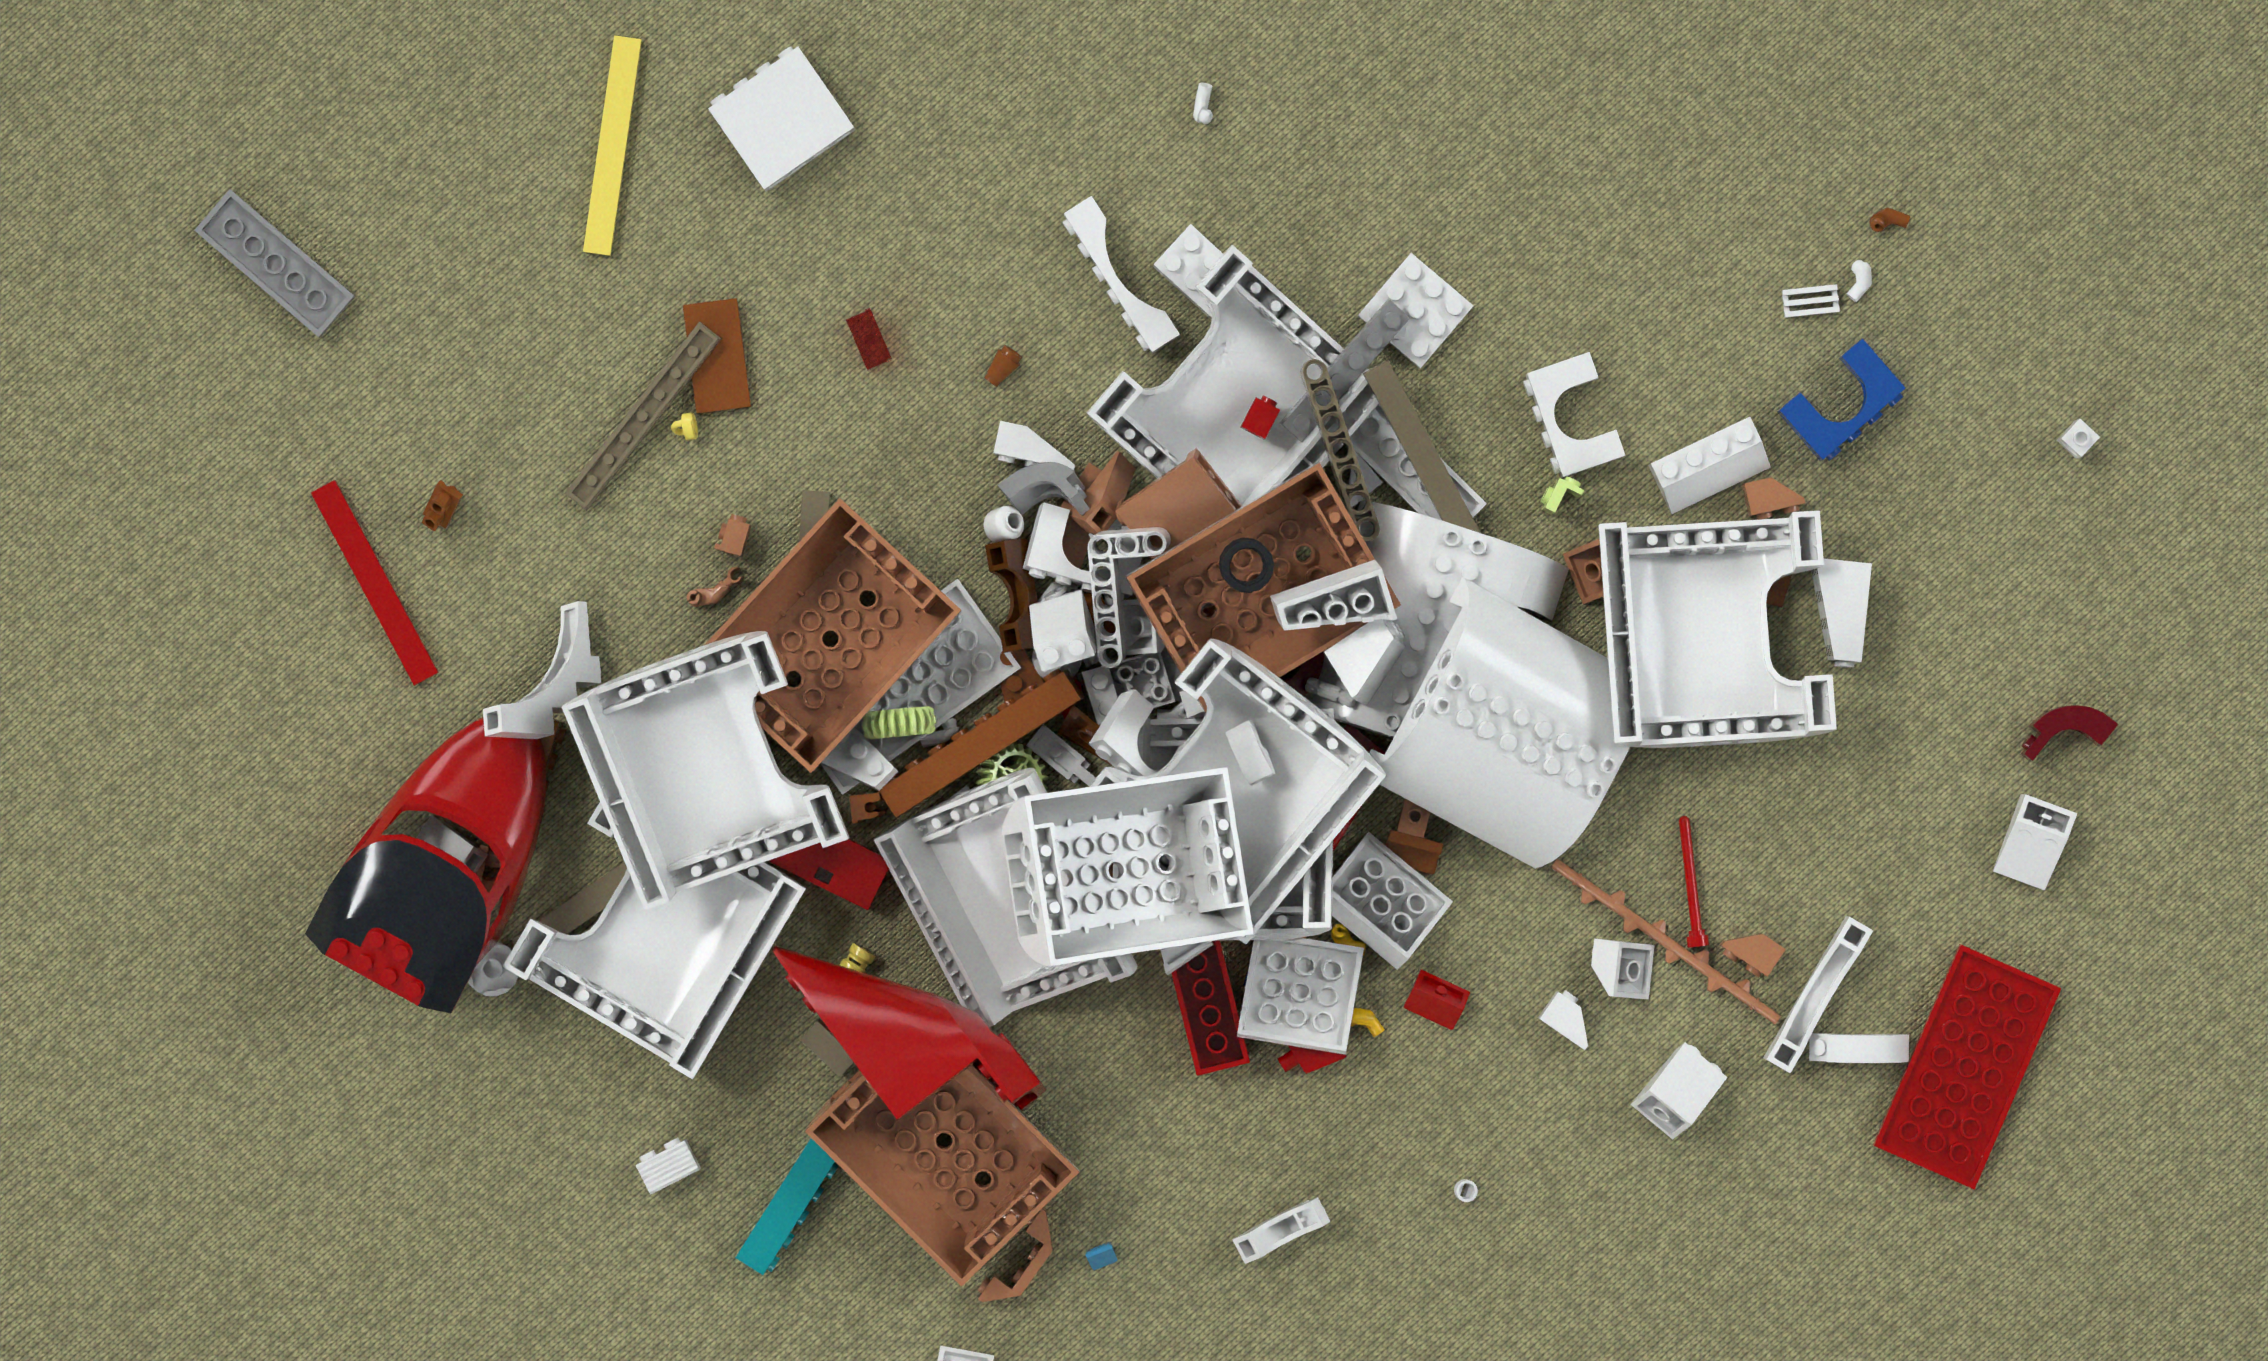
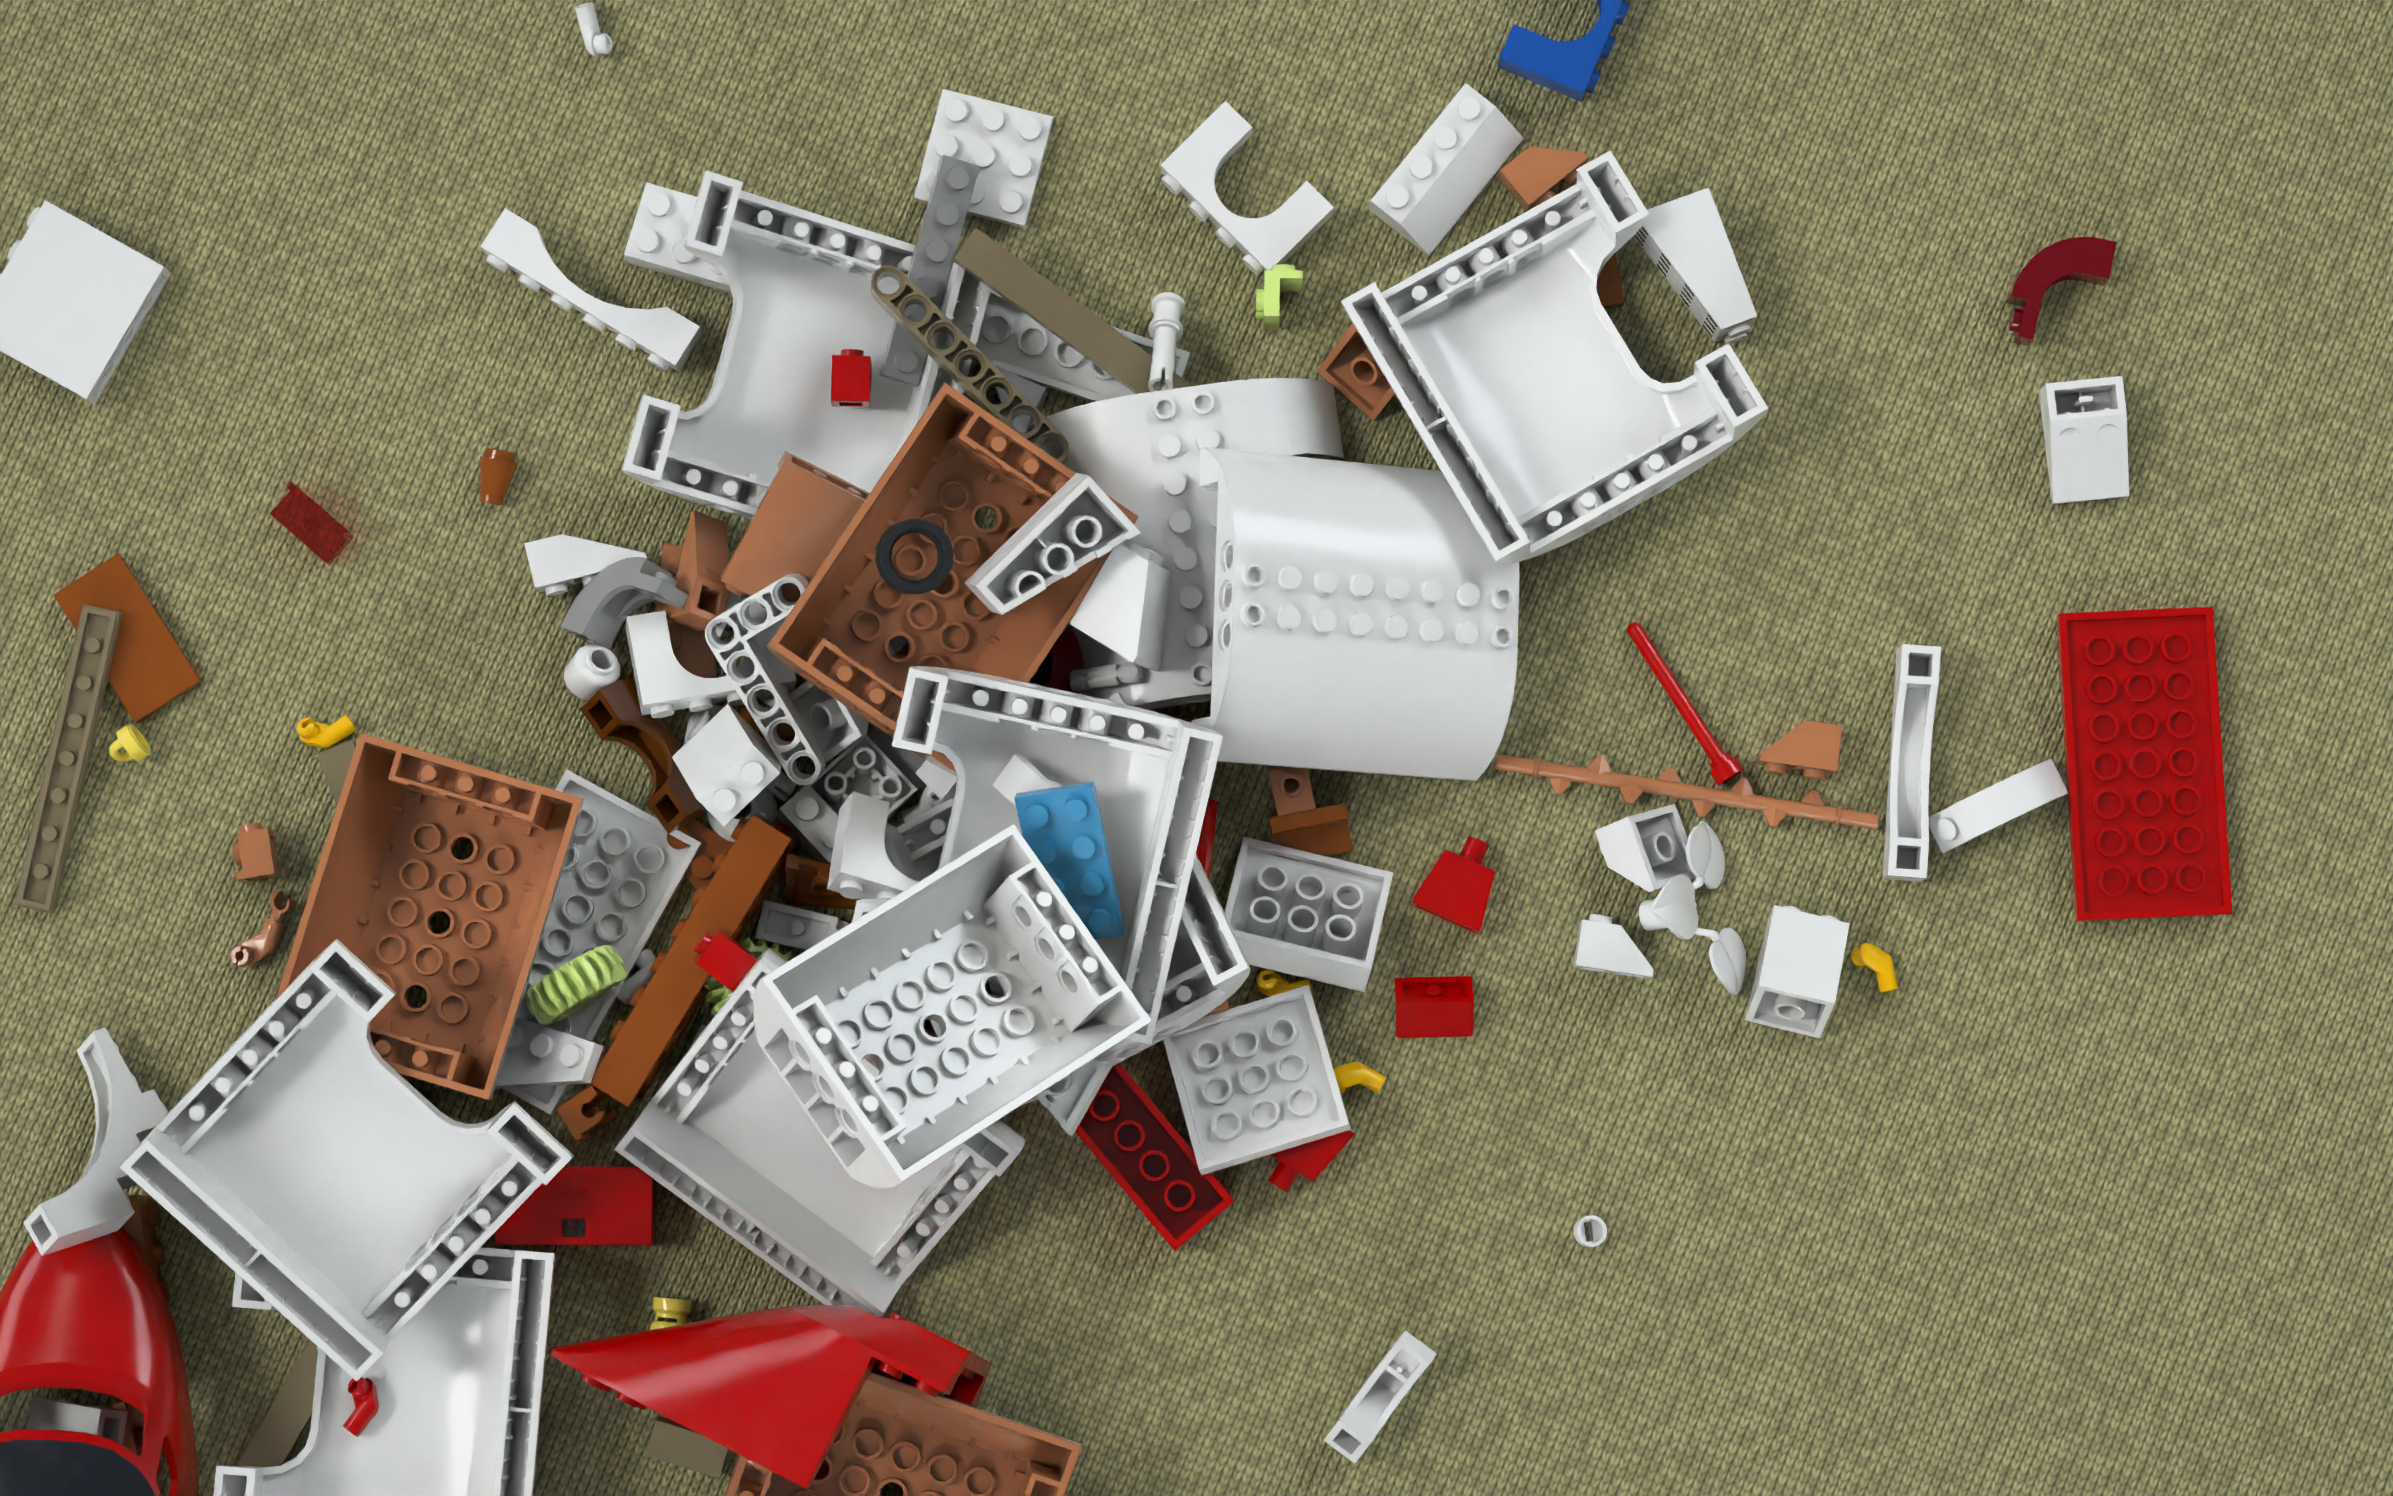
camera: 30 degrees left, 5 degrees down
(639, 921) = (365, 1403): none -> red arm
(812, 480) = (323, 735): none -> yellow arm
(1001, 755) = (723, 958): none -> red brick
(1256, 795) = (1071, 843): none -> dark azure plate
(1477, 483) = (1165, 331): none -> white pin
(1489, 931) = (1458, 887): none -> red torso
(1622, 1014) = (1677, 910): none -> white plant
(1734, 1109) = (1878, 961): none -> yellow arm

